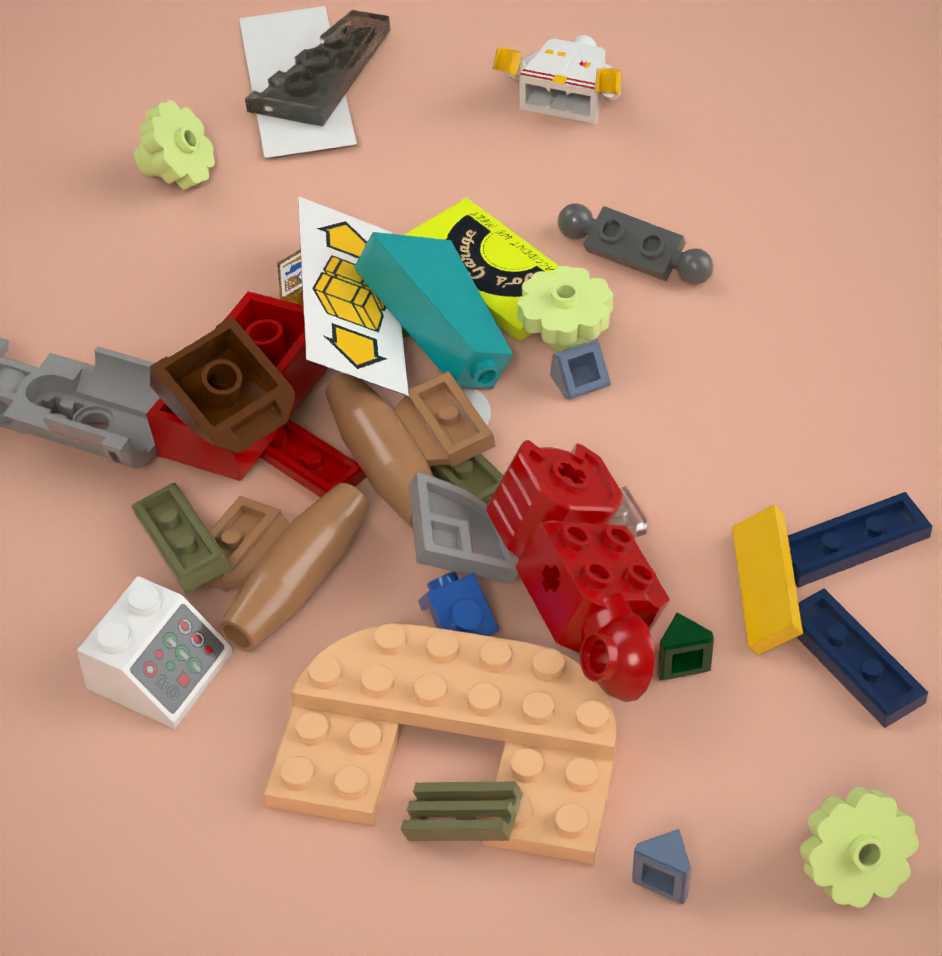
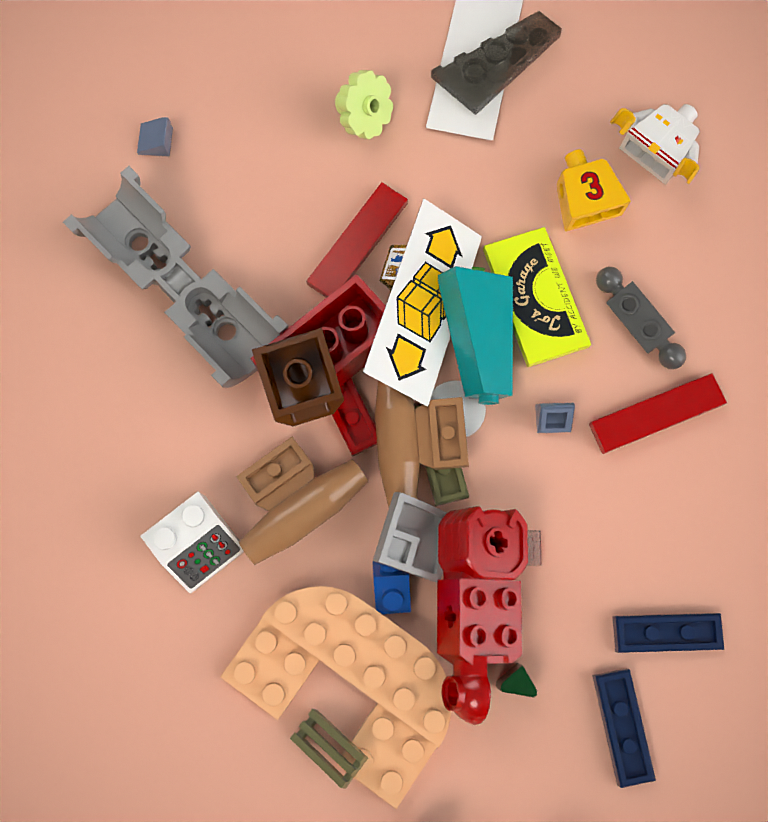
camera: 20 degrees right, 30 degrees up
(181, 537) = (242, 457): olive tile -> none
(232, 275) = (357, 240): none -> red tile
(505, 149) = (589, 192): none -> yellow torso
(565, 306) = (574, 357): yellowish green plant -> none
(708, 330) = (657, 413): none -> red tile
(766, 580) = (595, 648): yellow tile -> none

